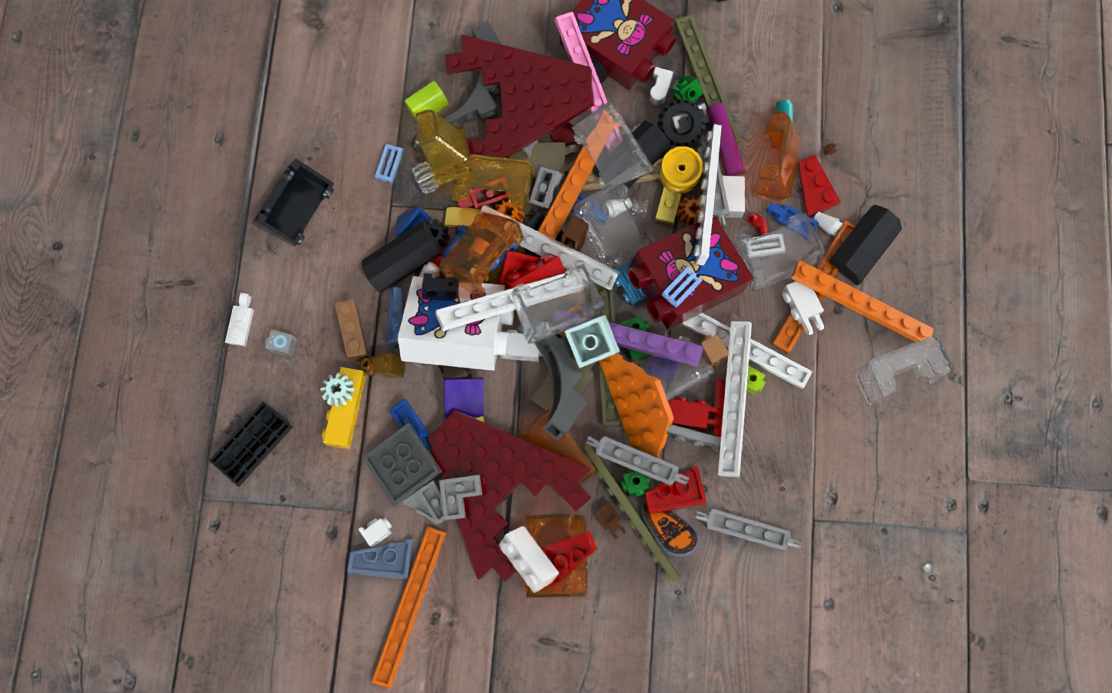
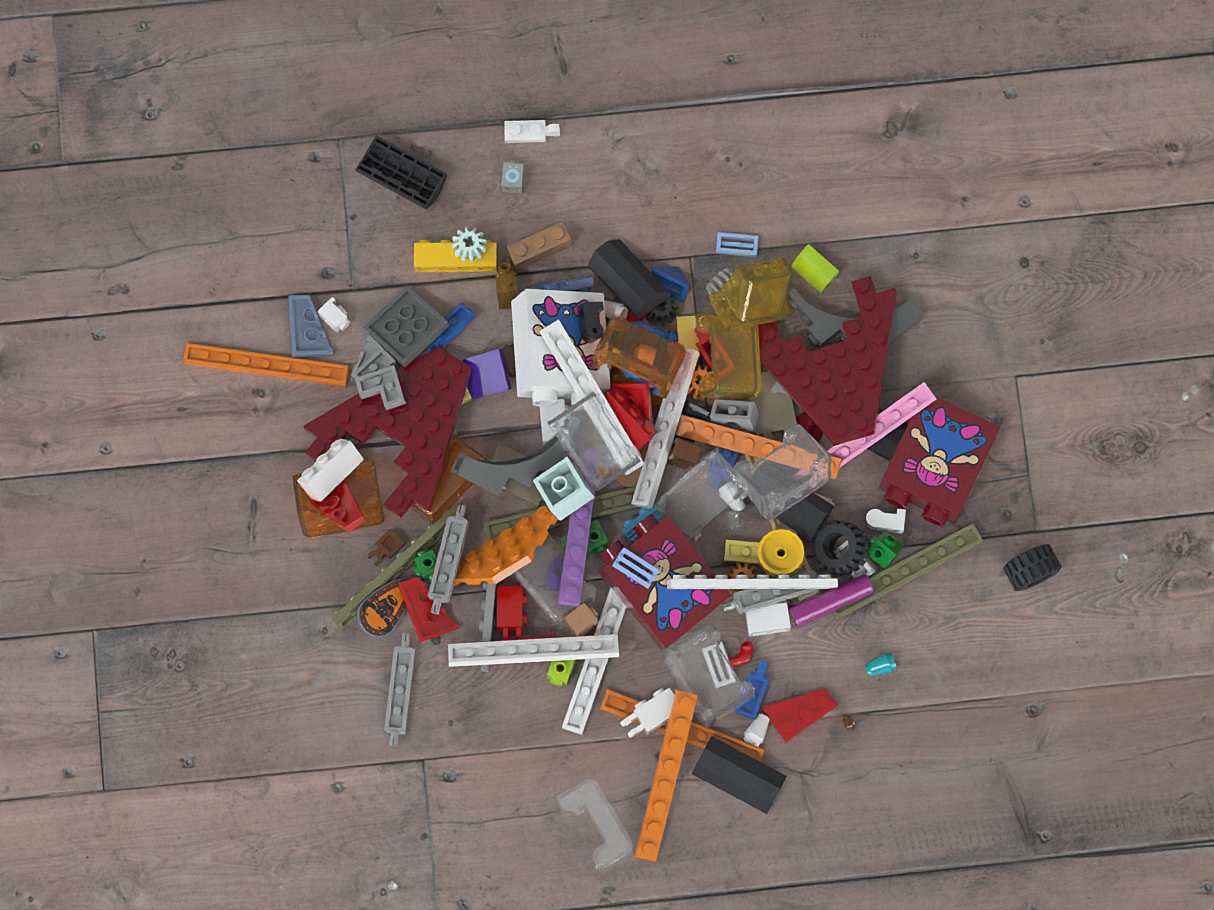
camera: 80 degrees right, 0 degrees up
(293, 202) = (667, 153): black windscreen -> none
(778, 179) = (819, 669): clear orange windscreen -> none

